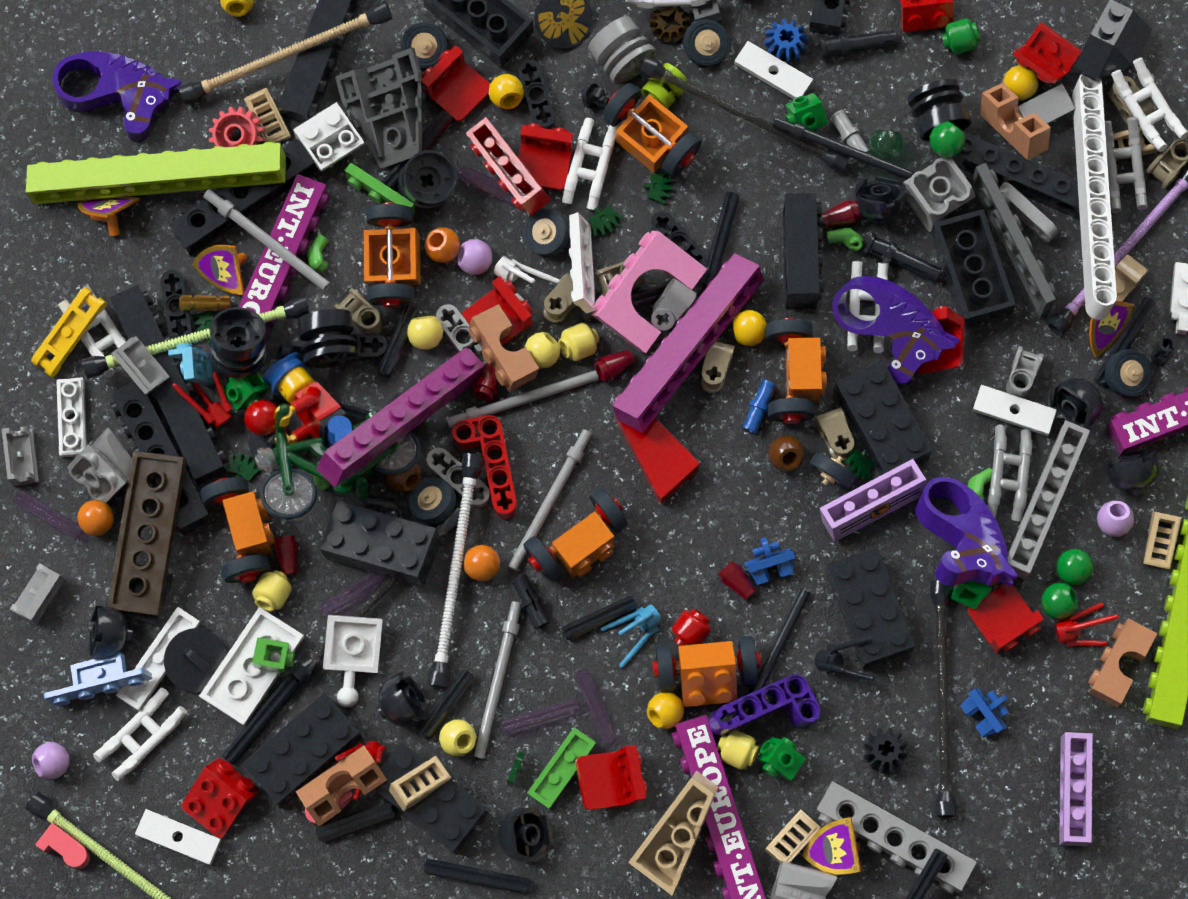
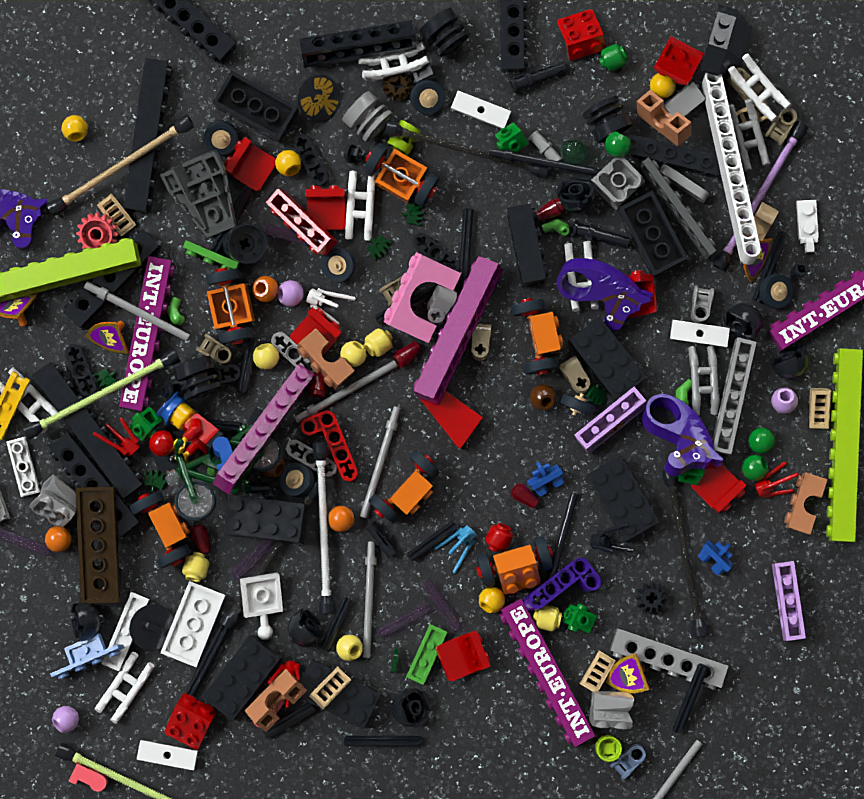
camera: 15 degrees left, 10 degrees up
(38, 594) = (28, 601): light grey hinge -> none
(140, 365) = (66, 424): light grey hinge -> none
(195, 365) = (106, 413): medium azure bracket -> none
(204, 302) = (101, 364): pearl gold axle -> none
(238, 342) = (132, 386): black wheel -> none
(266, 648) = (201, 620): bright green brick -> none
(328, 136) = (165, 223): white slope -> none
(560, 297) = (363, 309): dark tan piece -> none
(582, 263) = (369, 283): white plate -> none
(672, 840) = (514, 691): tan wedge -> none
(749, 328) = (499, 309): yellow piece -> none
(759, 406) = (517, 365): blue pin -> none
(786, 32) = (493, 84): blue gear -> none

